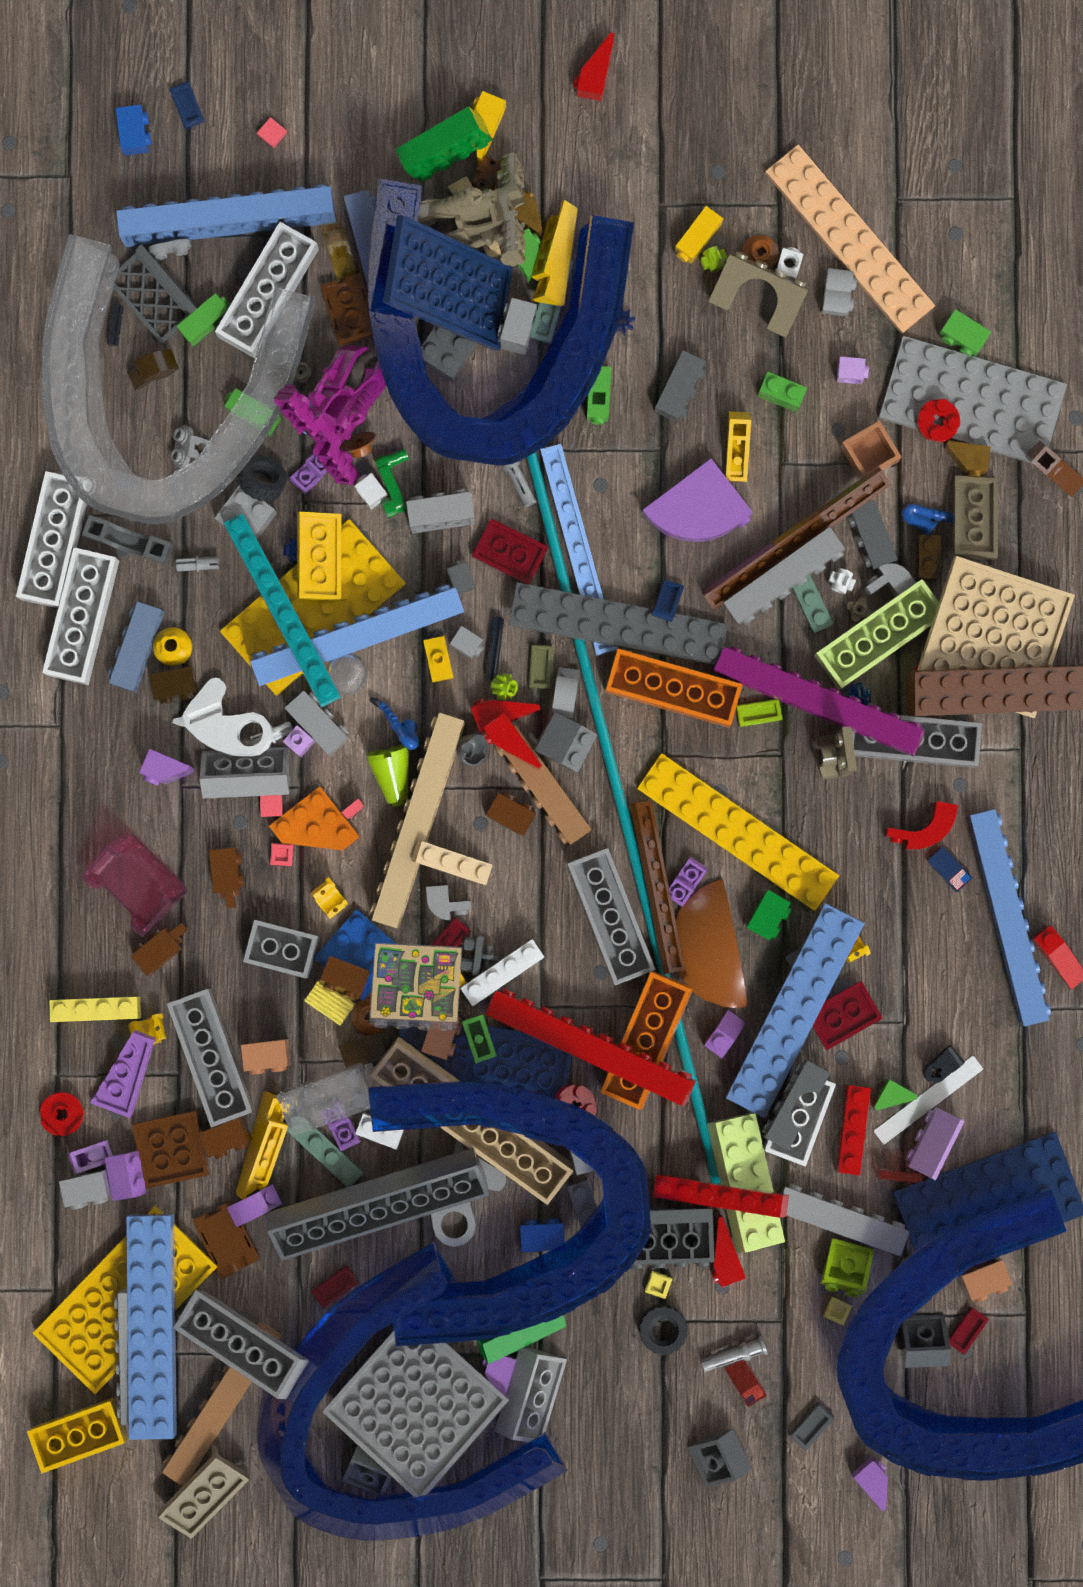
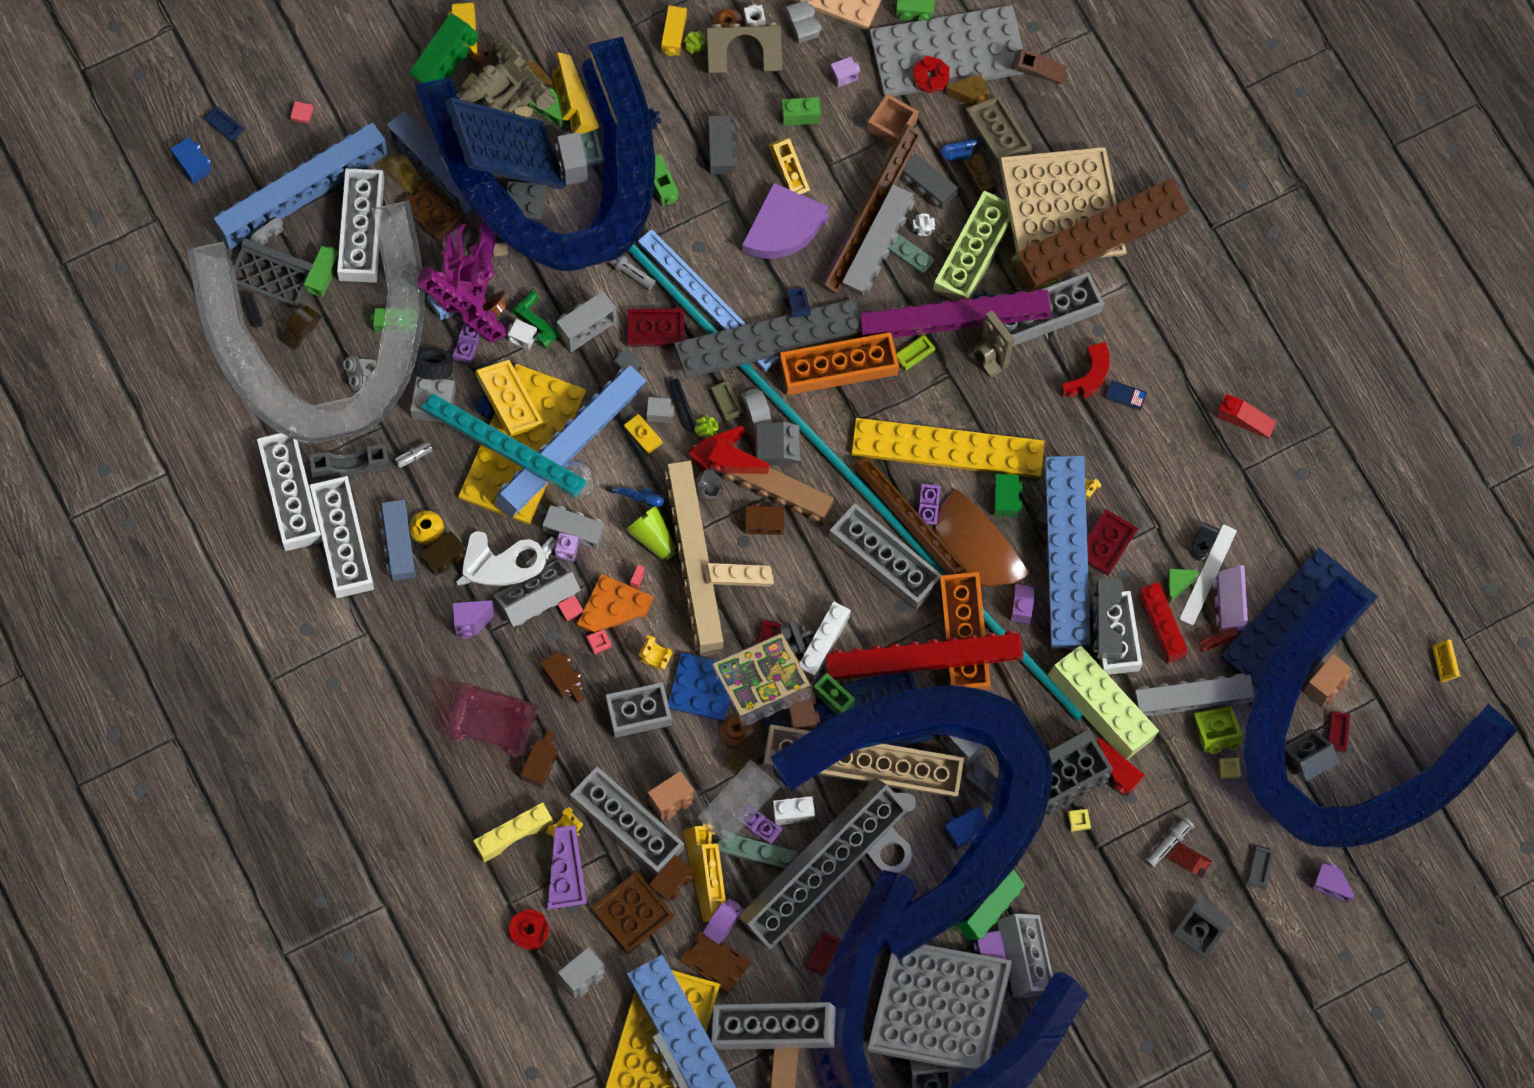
camera: 30 degrees left, 15 degrees down
(89, 1157) = (571, 948): medium lavender slope -> none
(125, 1175) = (608, 948): medium lavender brick -> none
(330, 1004) = (699, 732): light yellow brick -> none
(344, 978) = (701, 703): reddish brown brick -> none
(441, 906) = (749, 616): light grey brick -> none
(678, 1337) = (1102, 836): black tyre -> none
(721, 1196) = (1090, 716): red arch -> none
(893, 576) = (959, 203): light grey brick -> none
(1008, 918) = (1190, 407): medium blue brick -> none

